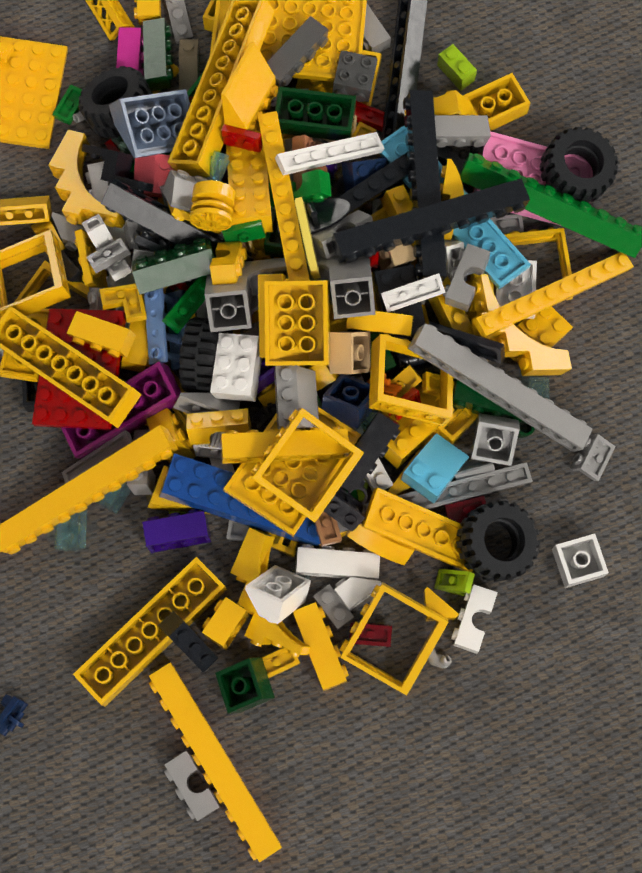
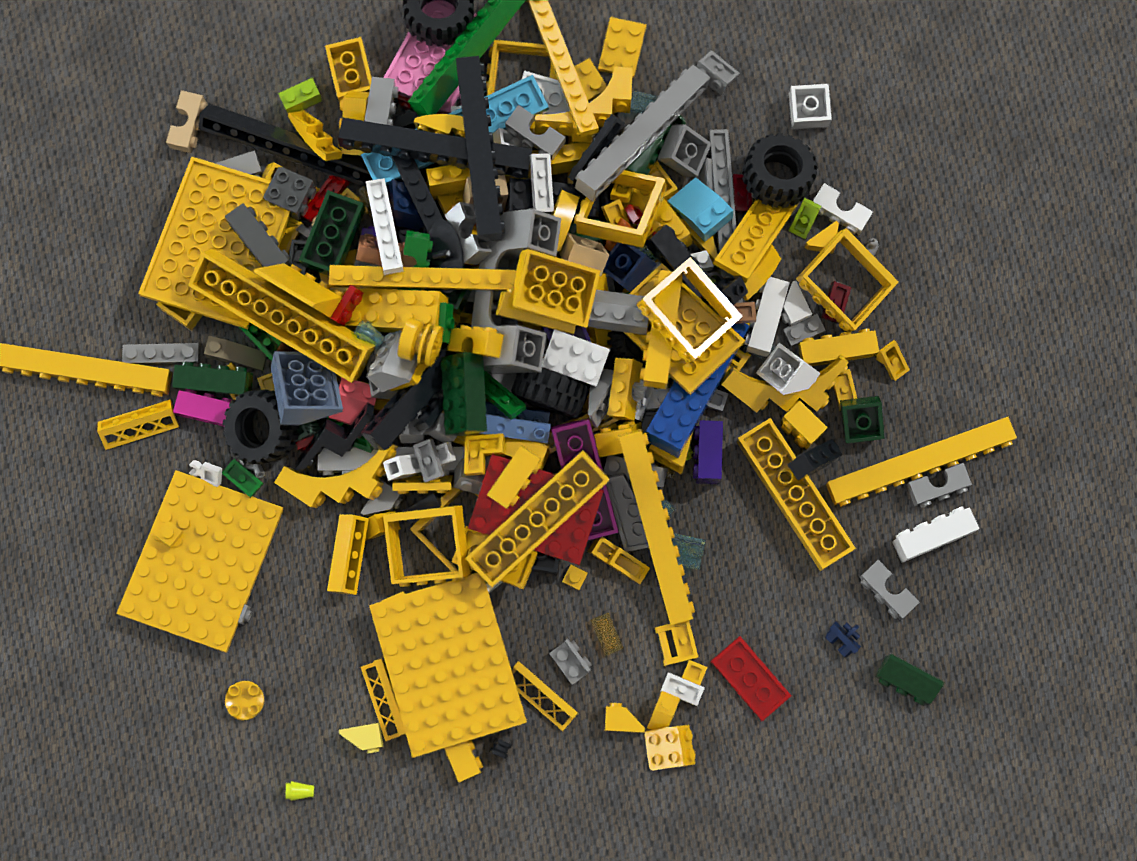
camera: 75 degrees left, 5 degrees up
(27, 430) = (574, 577): none -> yellow plate
(51, 467) = (618, 559): none -> yellow slope
(54, 766) = (899, 604): none -> light grey arch
(68, 75) = (207, 472): none -> white plate
(132, 790) = (937, 534): none -> white brick
(307, 238) = (471, 262): light yellow tile -> none
(318, 708) = (893, 360): none -> yellow slope
(425, 80) = (312, 133): none -> yellow slope
(595, 357) = (622, 45): none -> yellow plate

